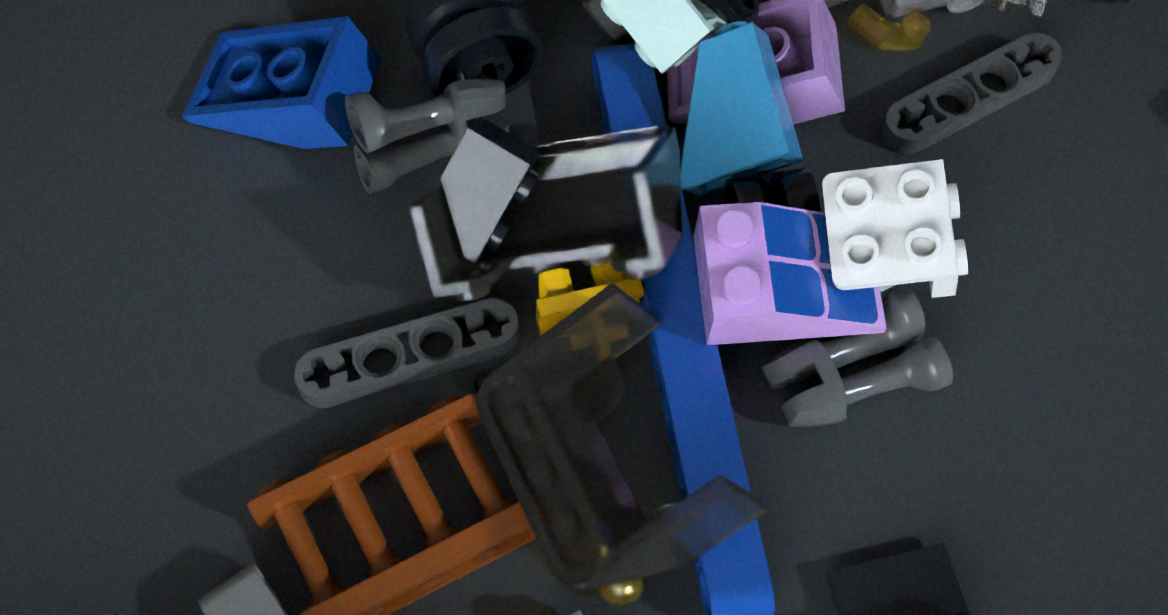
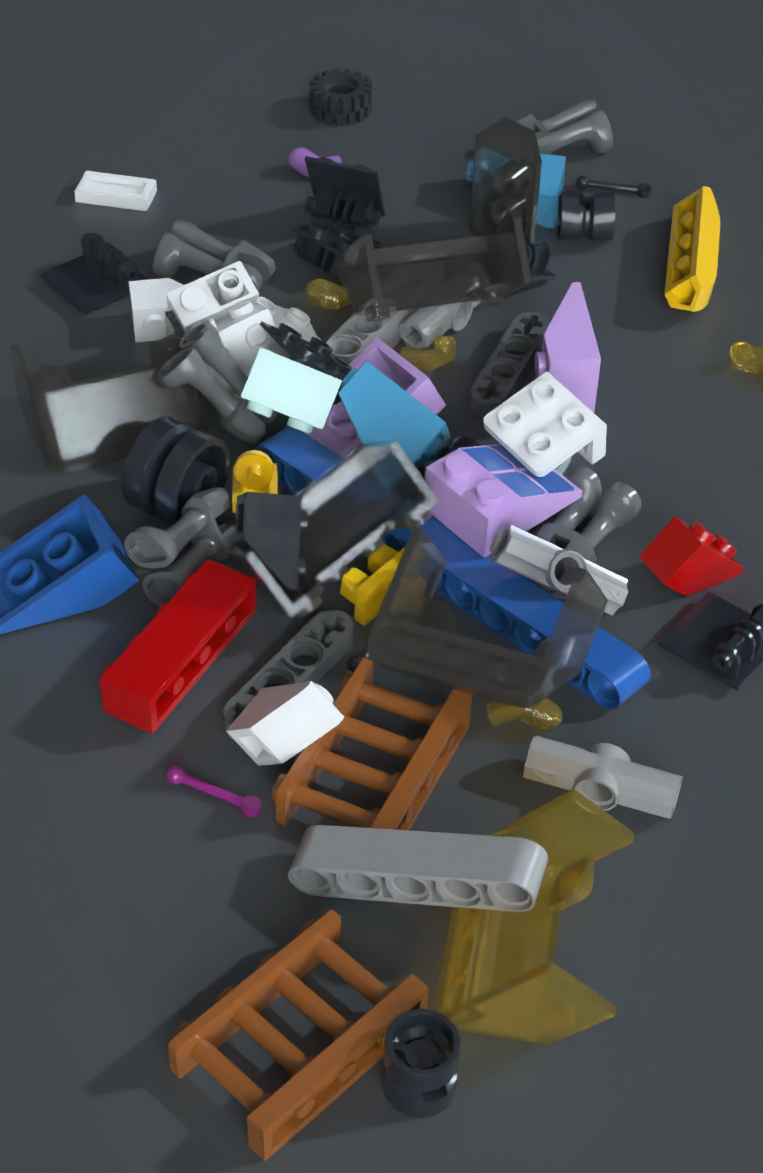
camera: 35 degrees left, 20 degrees down
(247, 482) = (249, 805): none -> magenta hinge
(310, 252) = (178, 646): none -> red brick
(324, 420) = (284, 721): none -> white slope
(543, 103) = (254, 473): none -> yellow hips
(749, 393) = (537, 561): none -> light grey piece
(952, 490) = (691, 557): none -> red slope
(1012, 144) = (571, 348): none -> lavender slope

